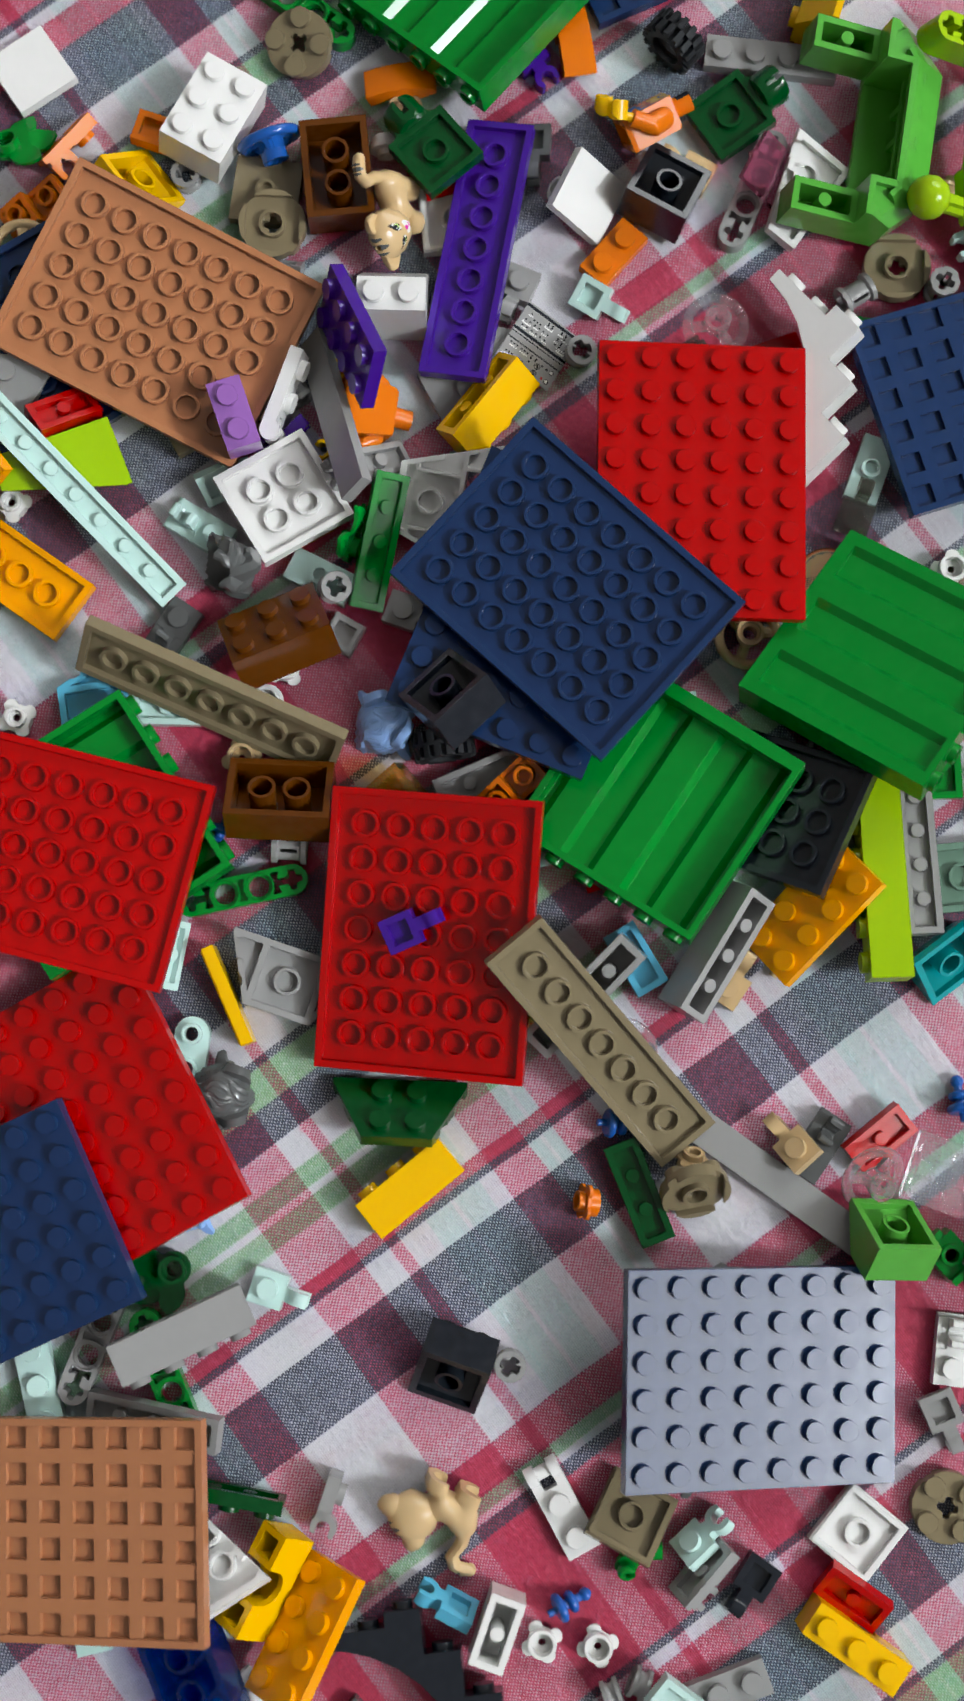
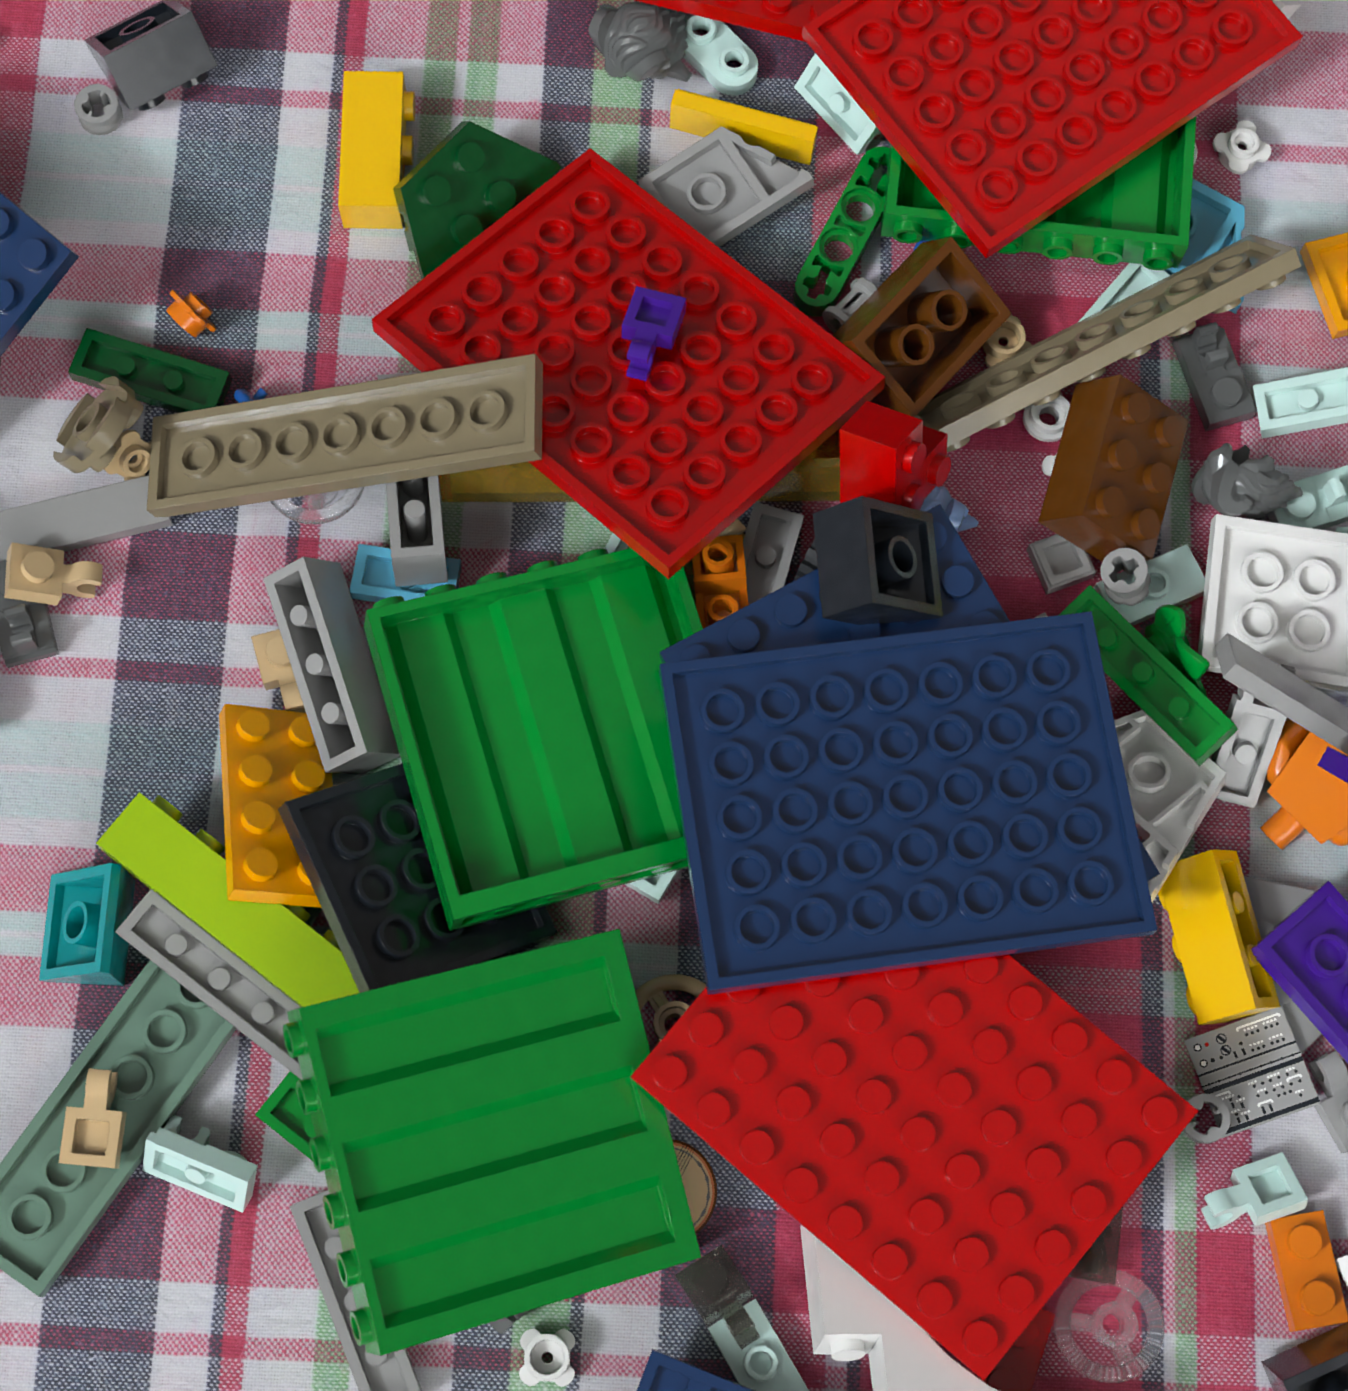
camera: 125 degrees right, 10 degrees down
(382, 742) = (891, 457): none -> red brick

